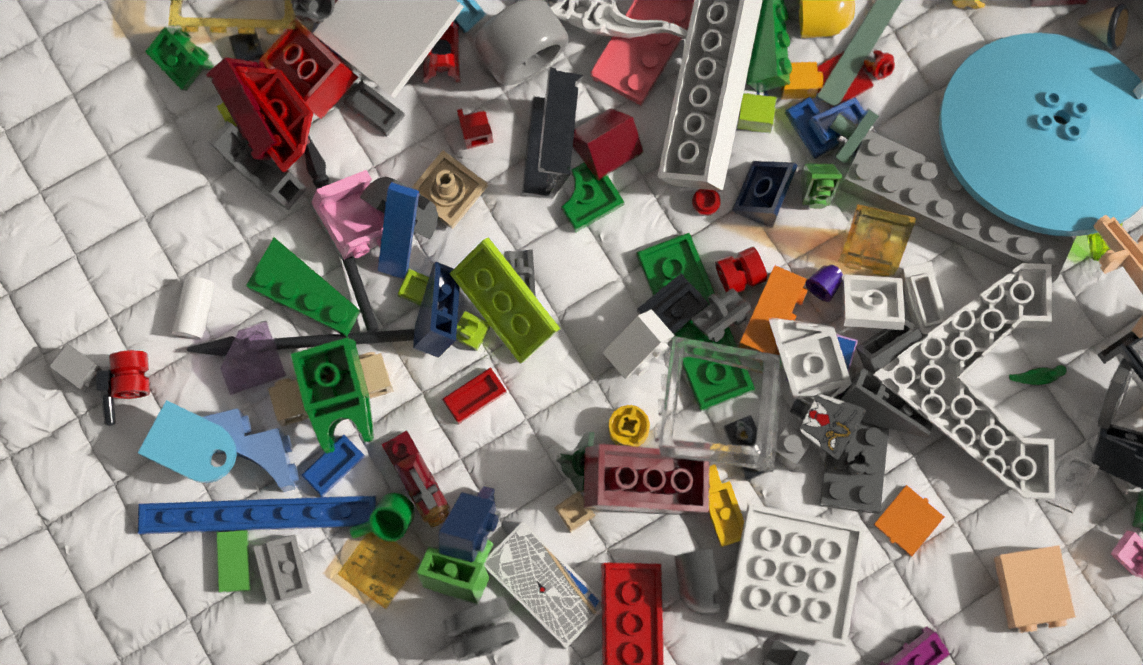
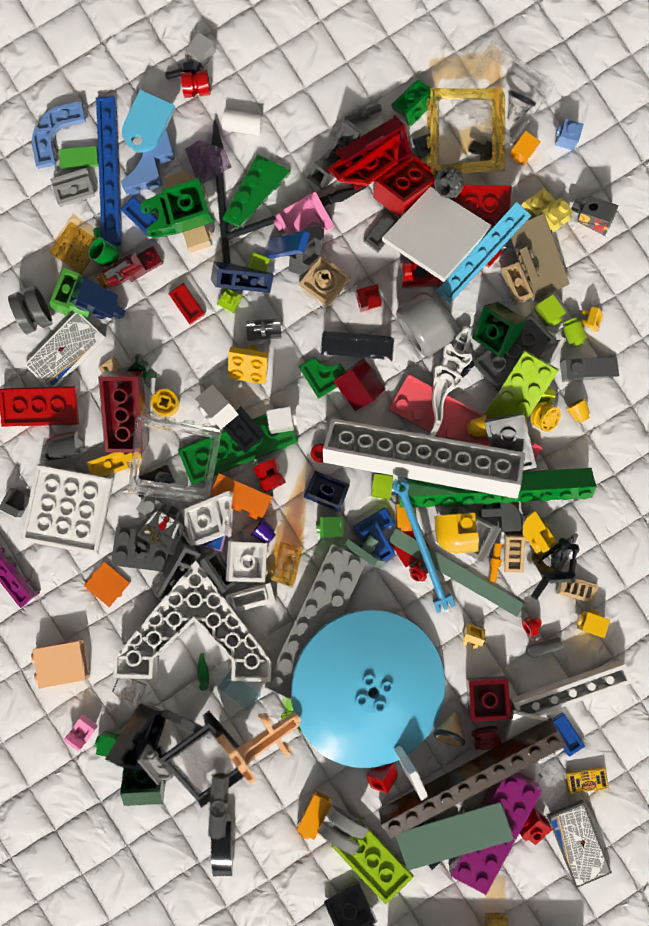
camera: 85 degrees right, 10 degrees up
(178, 606) = (47, 128): none -> medium blue plate
(192, 131) = (364, 113): none -> dark grey bar
(504, 300) = (245, 319): lime tile -> none
(574, 297) = (248, 364): none -> yellow plate
(662, 245) = (281, 420): none -> white brick
(720, 314) = (236, 460): dark grey hips -> none
(916, 34) = (442, 598): none -> dark azure hinge
(1064, 324) = (239, 691): none -> clear light blue tile

